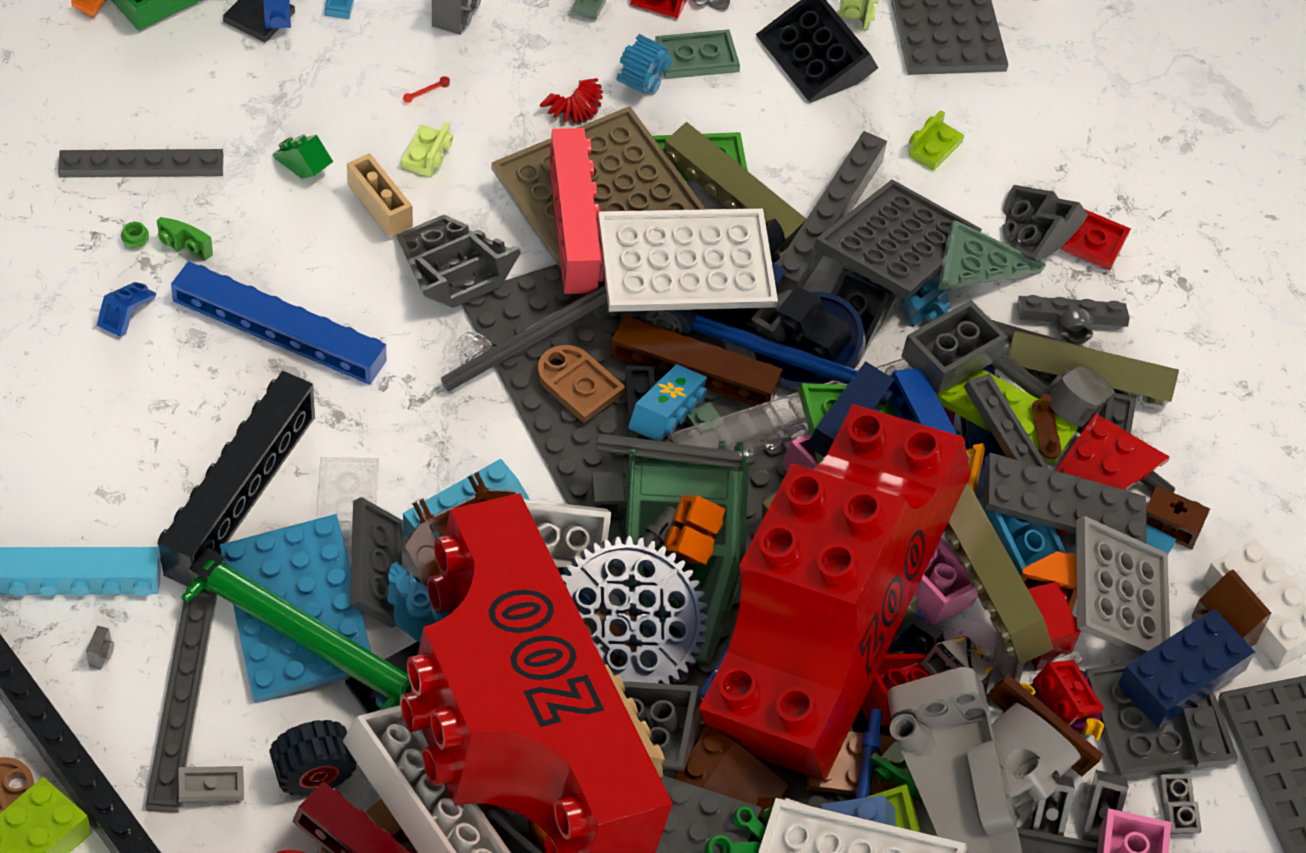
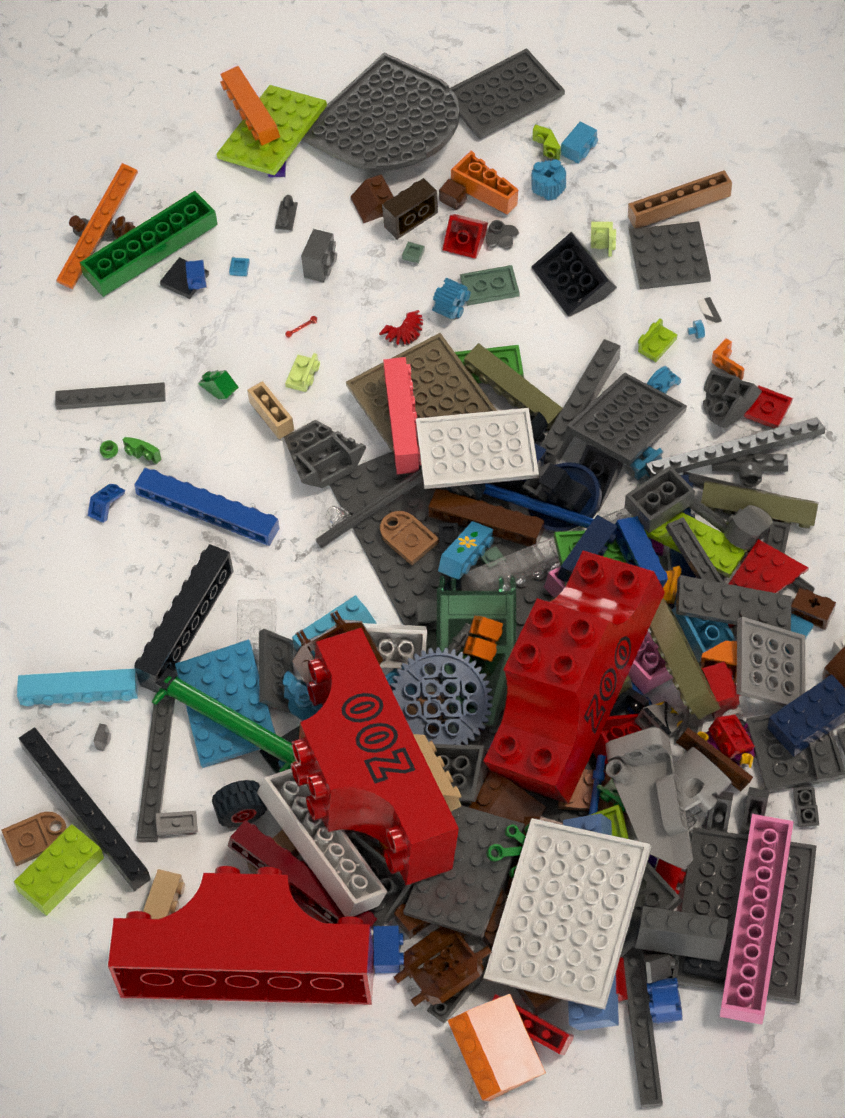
camera: 10 degrees right, 5 degrees up
(669, 451) = (464, 585): dark grey axle -> none
(947, 192) = (663, 379): none -> dark azure piece
(978, 258) = (683, 429): sand green tile -> none
(992, 130) = (697, 329): none -> dark azure tile
(1006, 108) = (709, 310): none -> sticker
(1030, 174) = (721, 360): none -> orange bracket
(1046, 428) = (723, 552): reddish brown piece -> none
(1060, 287) = (738, 447): none -> dark grey plate

